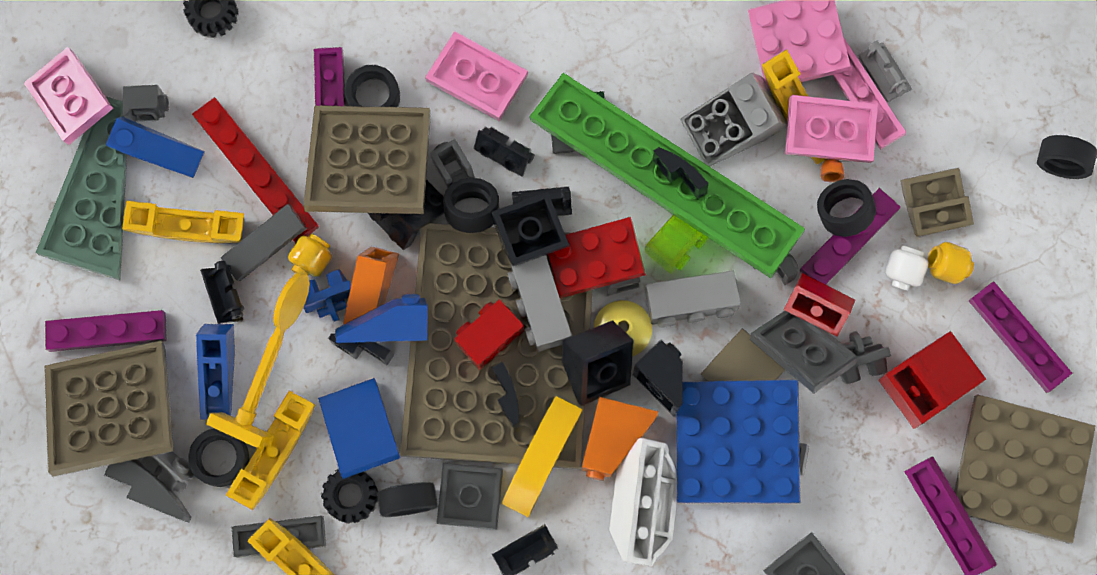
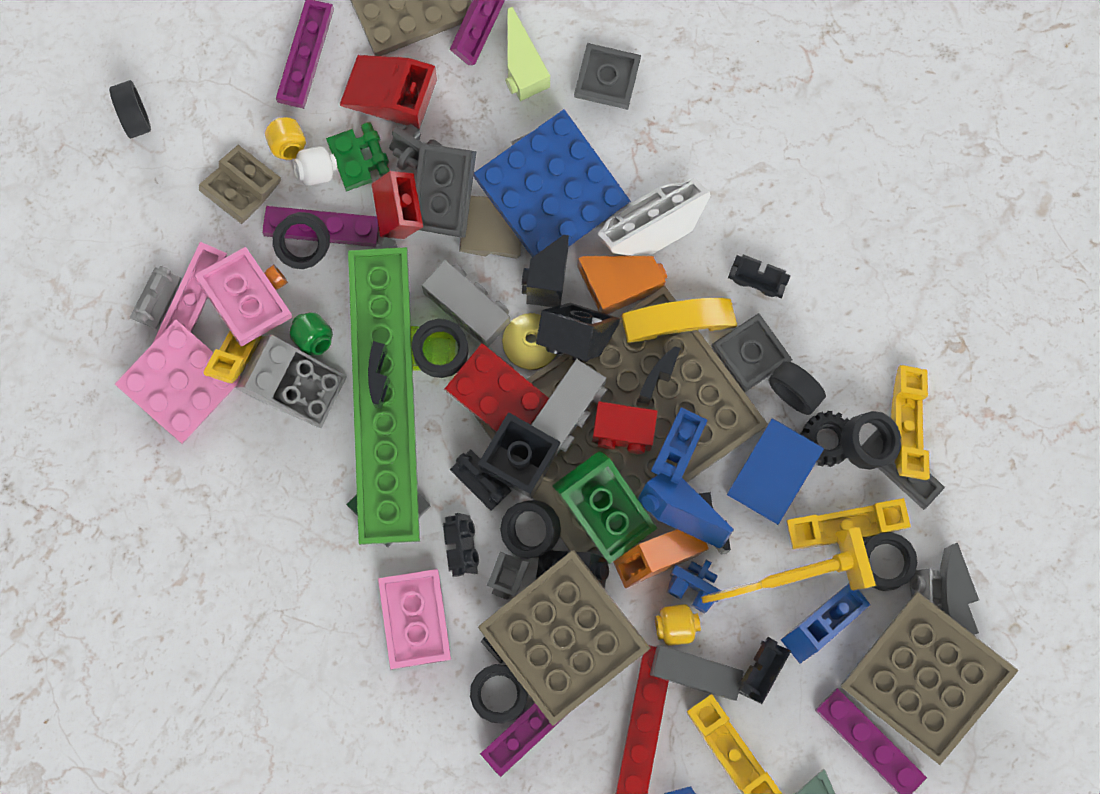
camera: 135 degrees left, 0 degrees up
(295, 529) = (890, 435): none -> black tyre
(437, 361) = (679, 445): none -> blue plate
(442, 268) = (604, 506): none -> green slope
(677, 220) = (426, 330): none -> black tyre
(761, 161) = (311, 333): none -> green head
(875, 511) = (525, 68): none -> yellowish green slope
(894, 304) = (350, 161): none -> green plate

